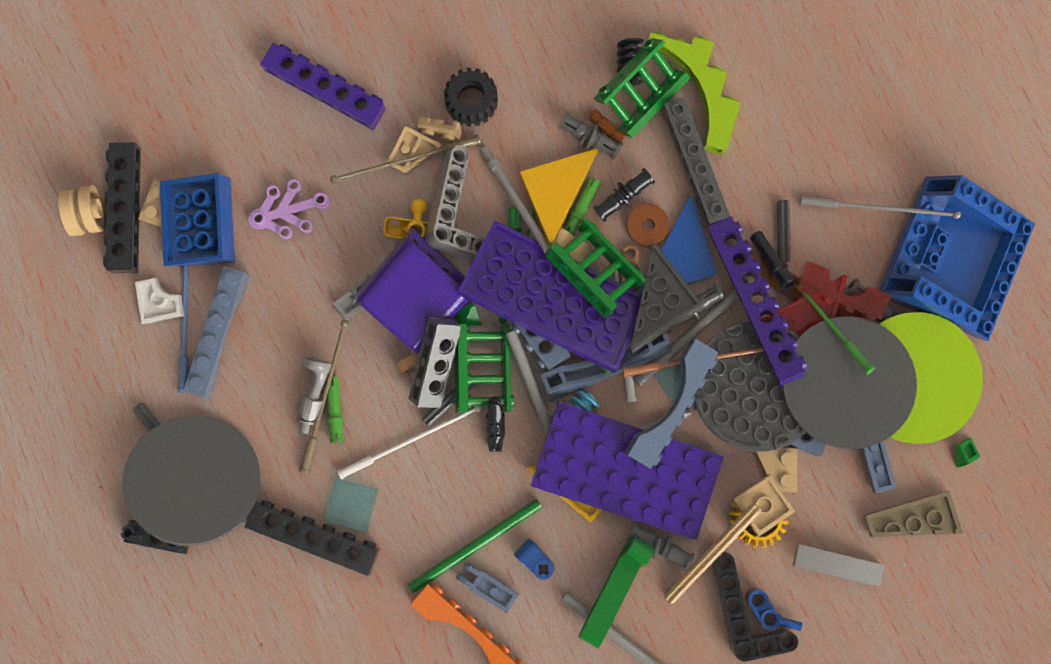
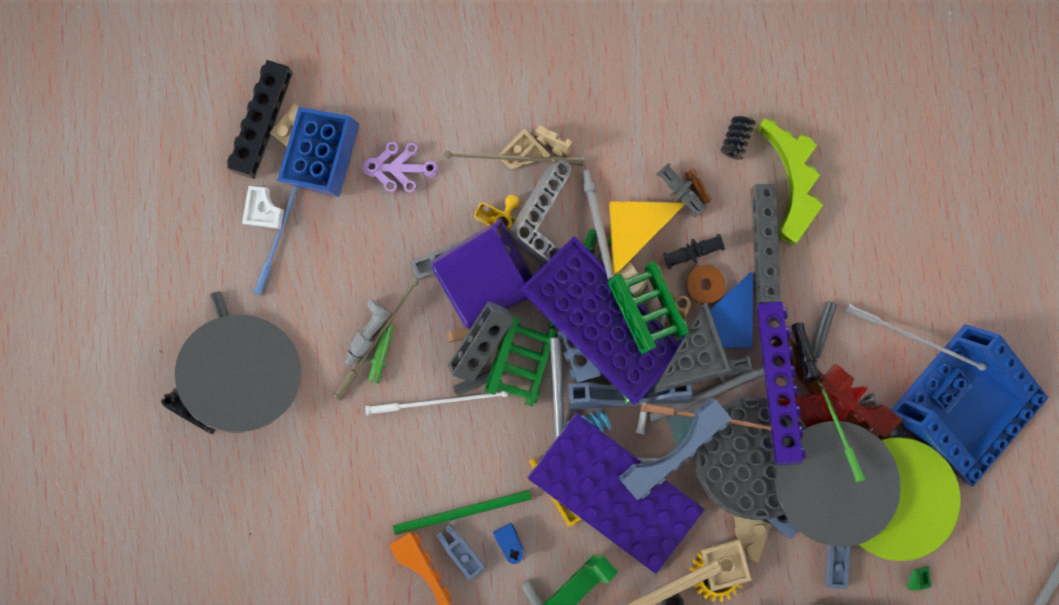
camera: 20 degrees right, 0 degrees up
(81, 210) = (224, 110): tan wheel -> none
(208, 353) = (317, 231): sand blue arch -> none
(259, 523) = (283, 429): black brick -> none
(279, 55) = (436, 32): dark purple brick -> none
(351, 505) = (367, 440): clear light blue tile -> none
(468, 80) = (589, 107): black tyre -> none
(469, 316) = (523, 311): green slope -> none
(495, 425) = (514, 413): black hinge -> none
(584, 201) = (645, 256): bright green pin -> none
(660, 93) = (753, 175): green fence -> none
(663, 547) = (625, 570): dark grey piece -> none

